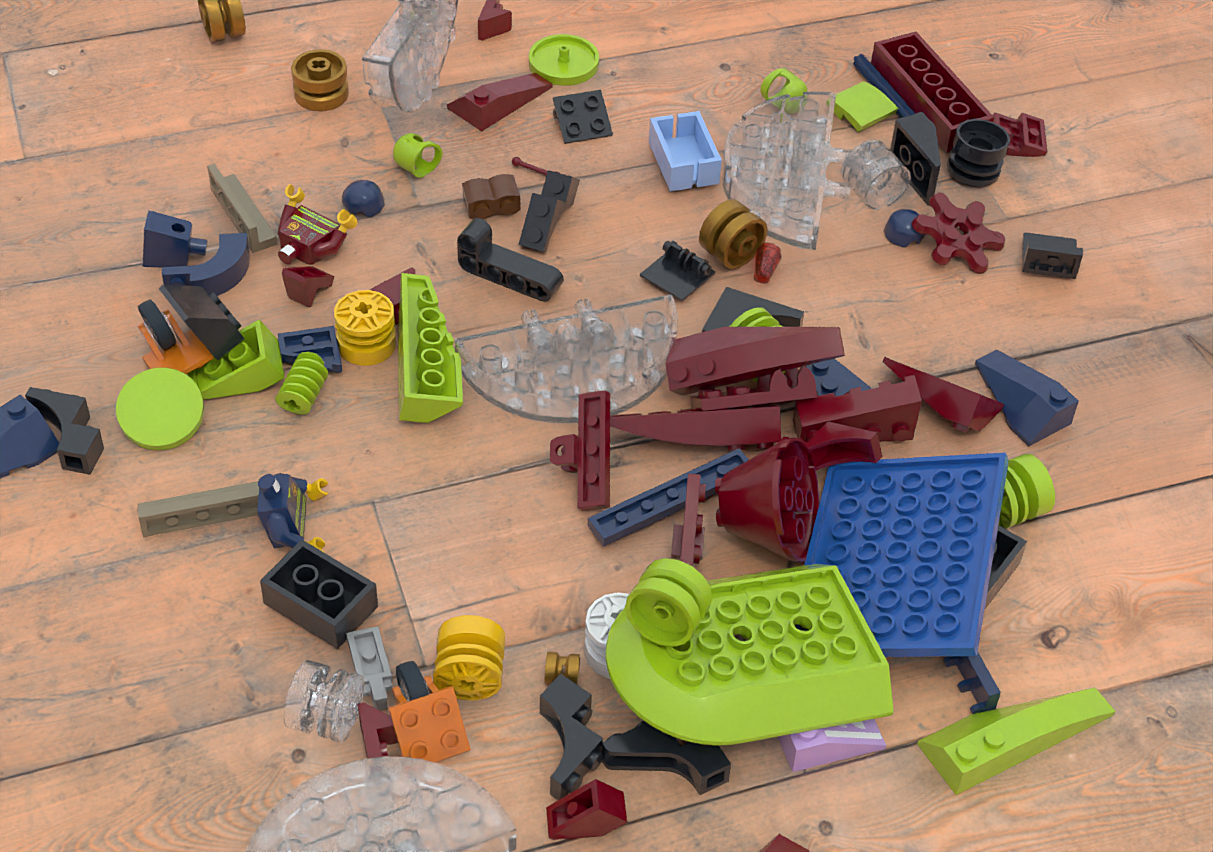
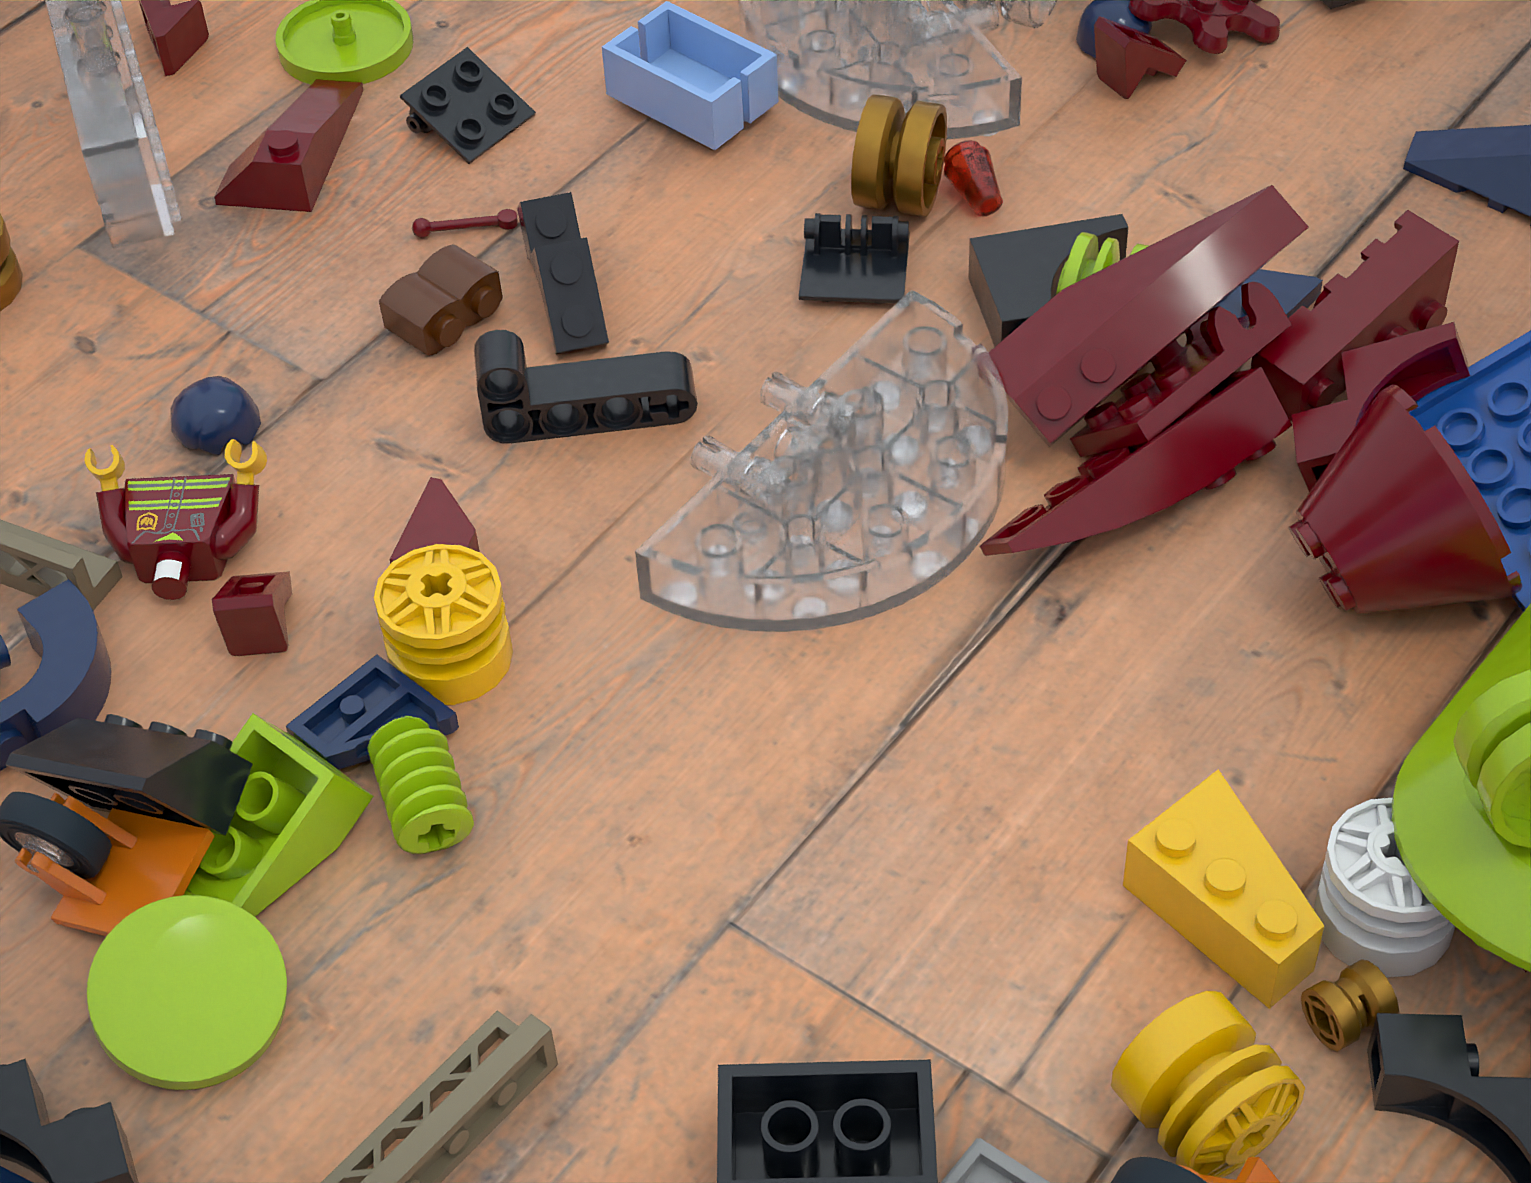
camera: 30 degrees left, 0 degrees up
(284, 508) = (615, 1035): dark blue torso -> none
(408, 153) = (235, 297): lime helmet -> none
(426, 355) = (614, 632): lime wedge -> none
(558, 597) = (1225, 890): none -> yellow wedge
(588, 451) = (1033, 610): dark red plate -> none
(659, 501) = (1209, 616): dark blue plate -> none
(689, 537) = (1336, 655): dark red plate -> none
(896, 241) = (1128, 54): none -> dark red slope
(951, 401) = (1482, 223): dark red wedge -> none

